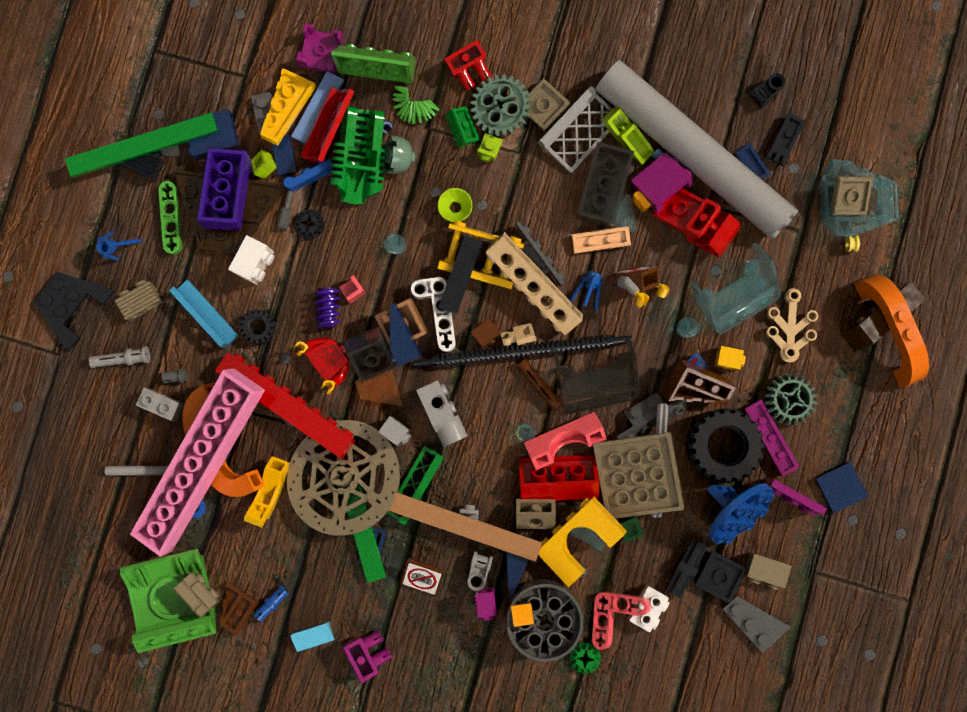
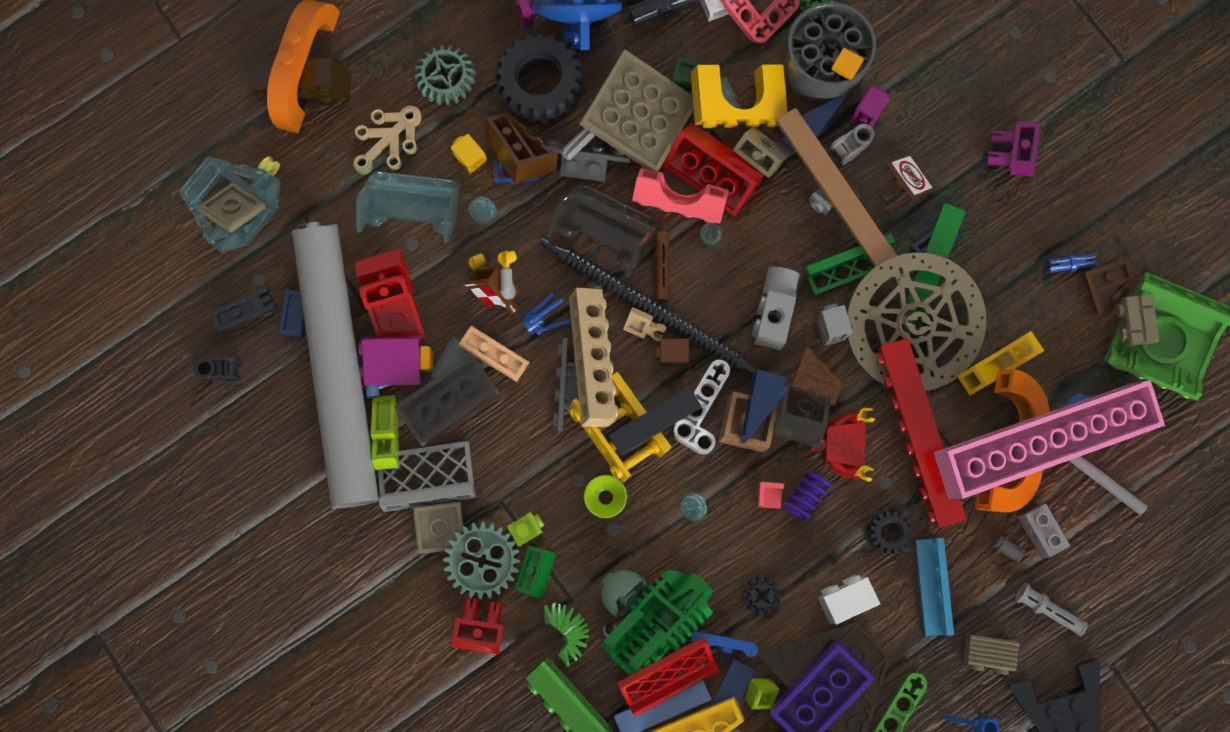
camera: 140 degrees left, 5 degrees down
(285, 213) = (776, 625): dark grey axle -> none
(312, 636) = (1053, 205): medium azure slope -> none
(772, 438) = (491, 49): magenta plate -> none

